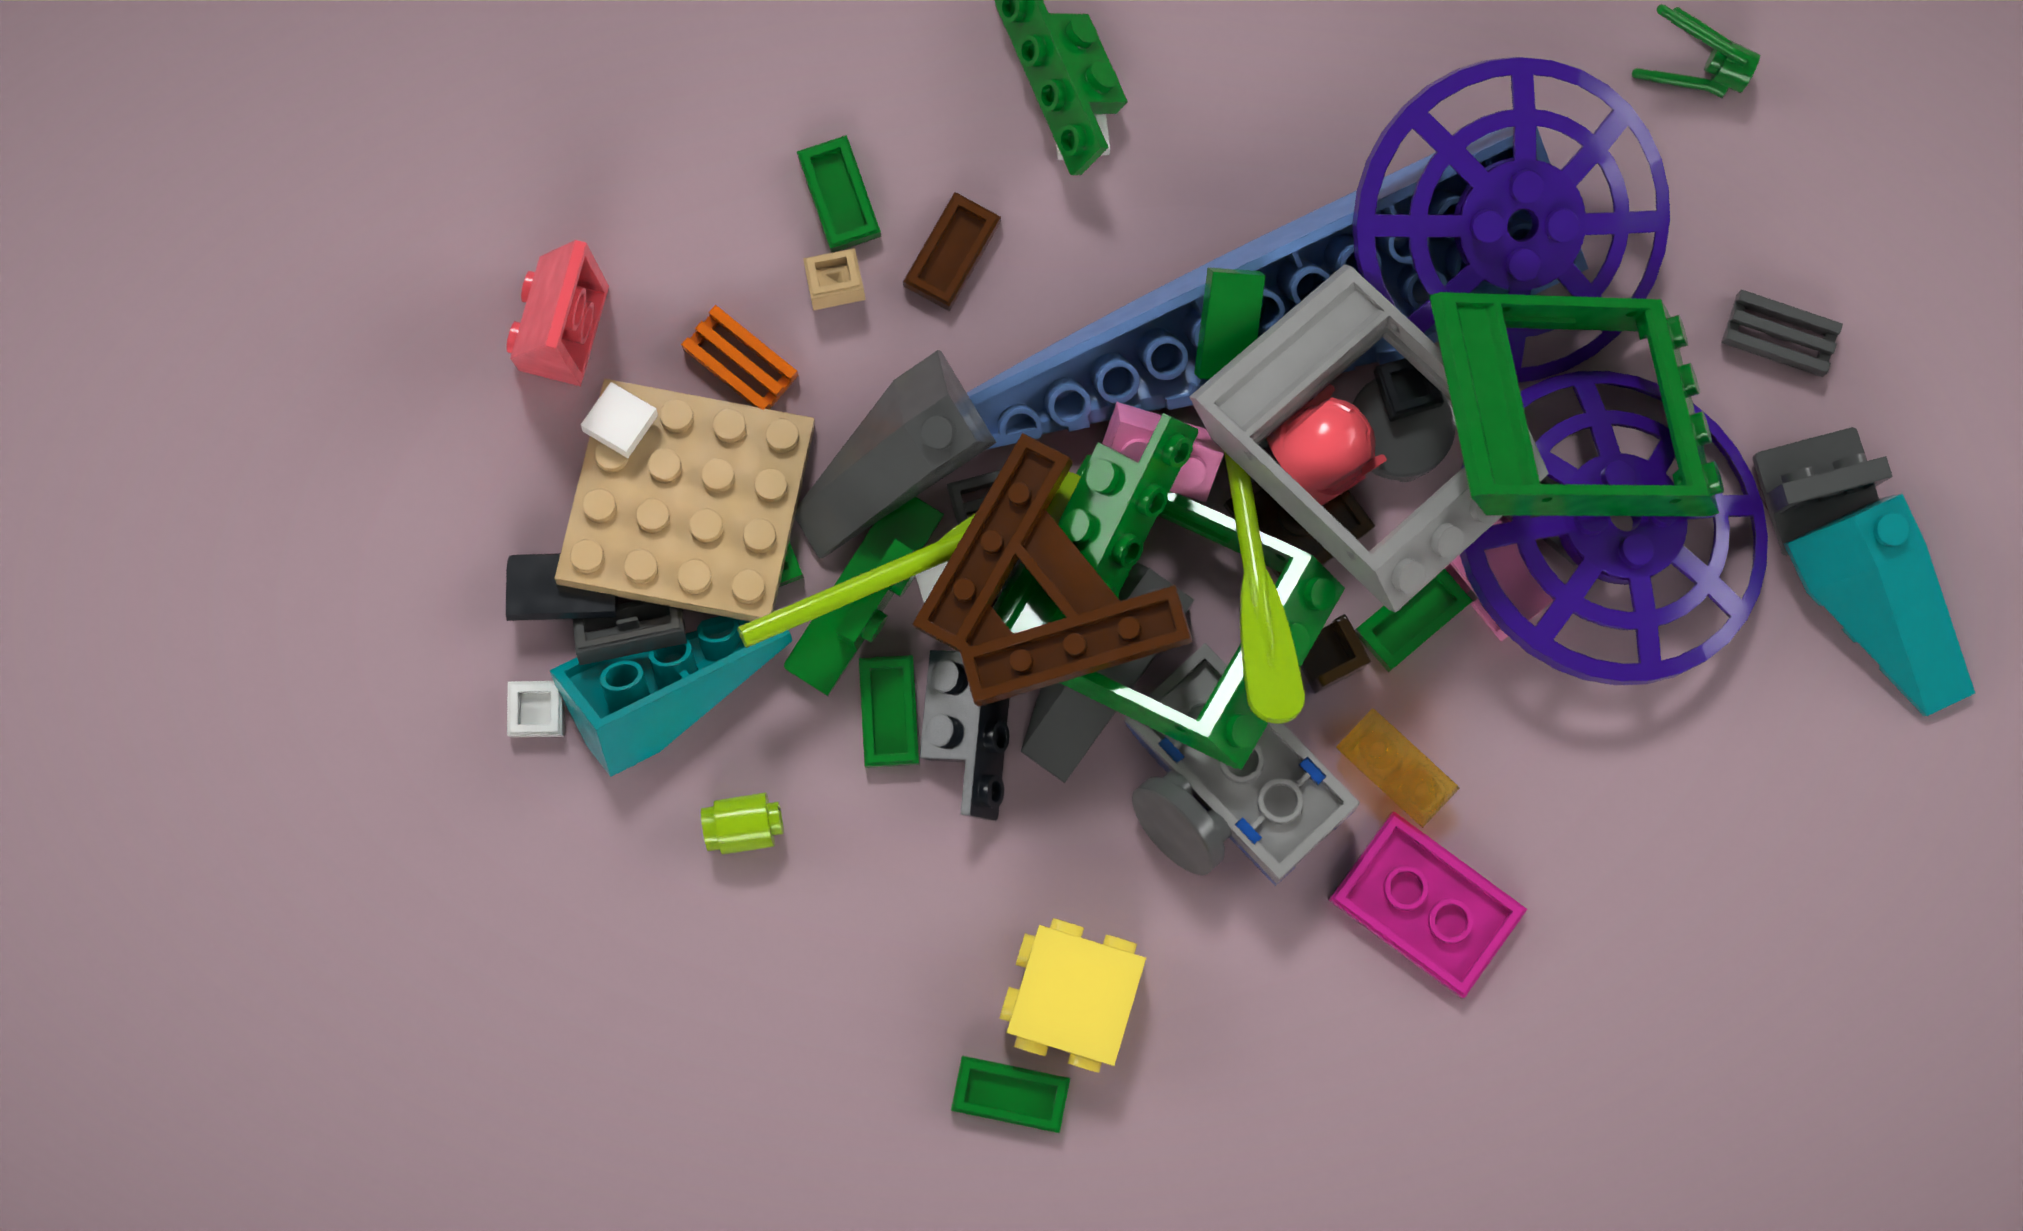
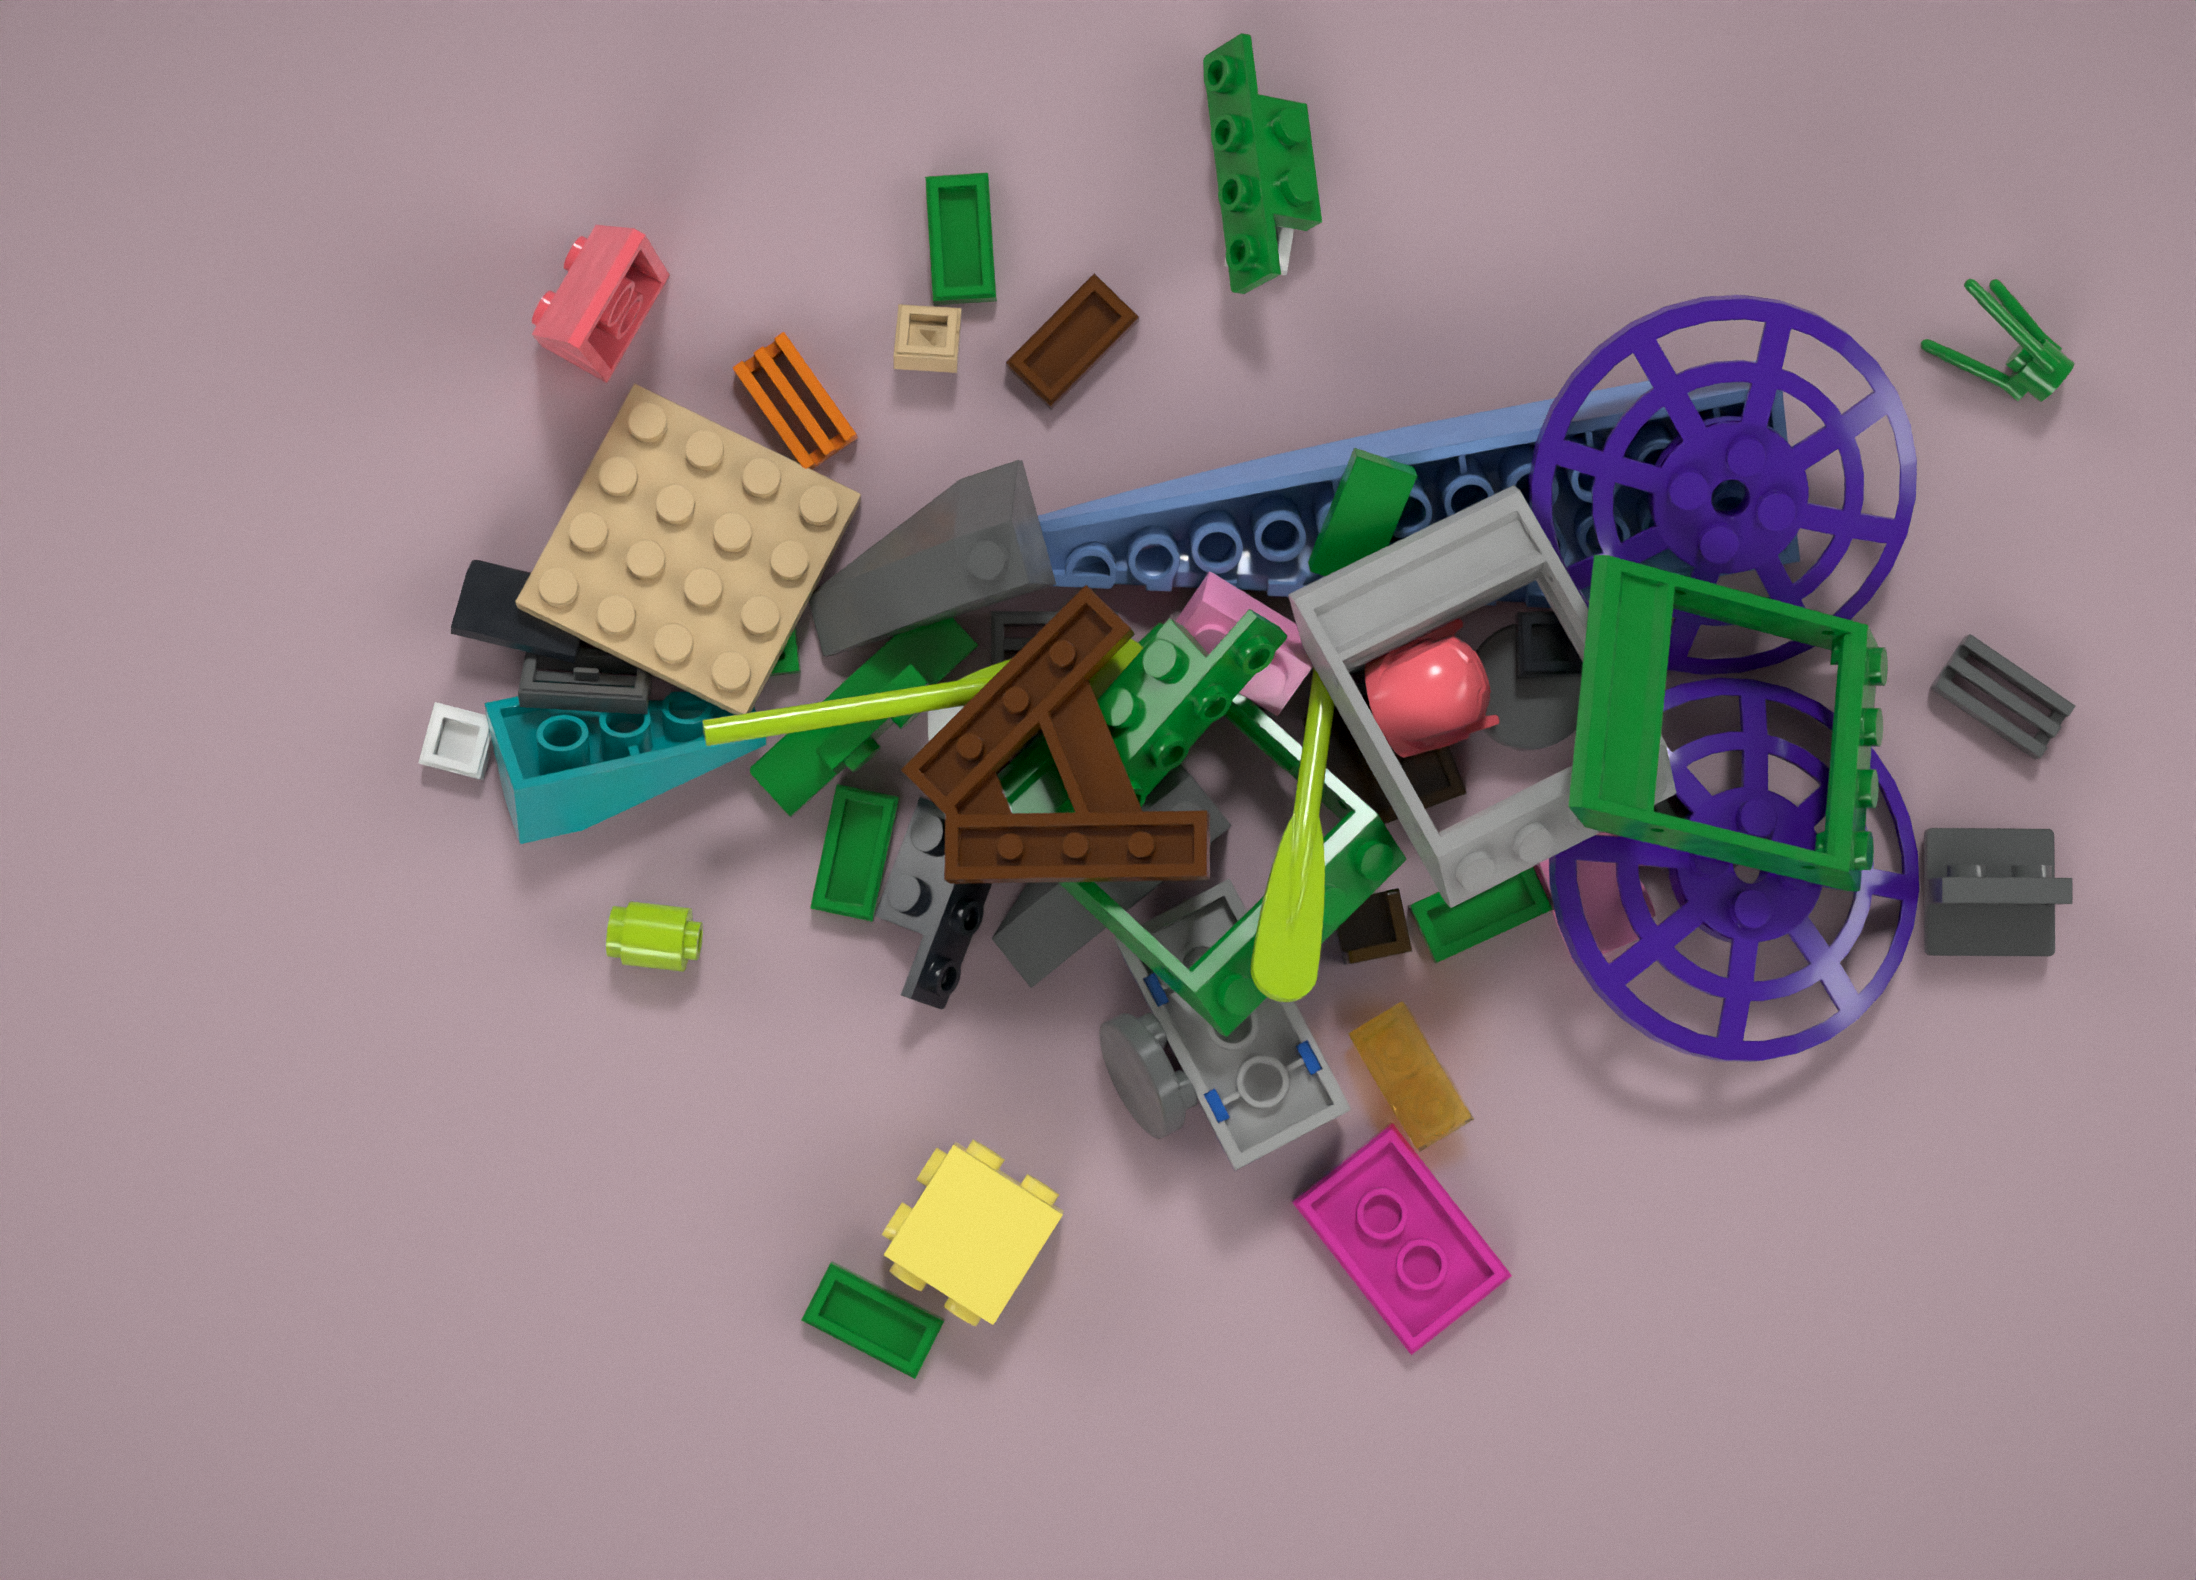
camera: 20 degrees right, 5 degrees up
(619, 420) = (636, 439): white tile -> none
(1885, 593) = (2026, 1033): teal wedge -> none

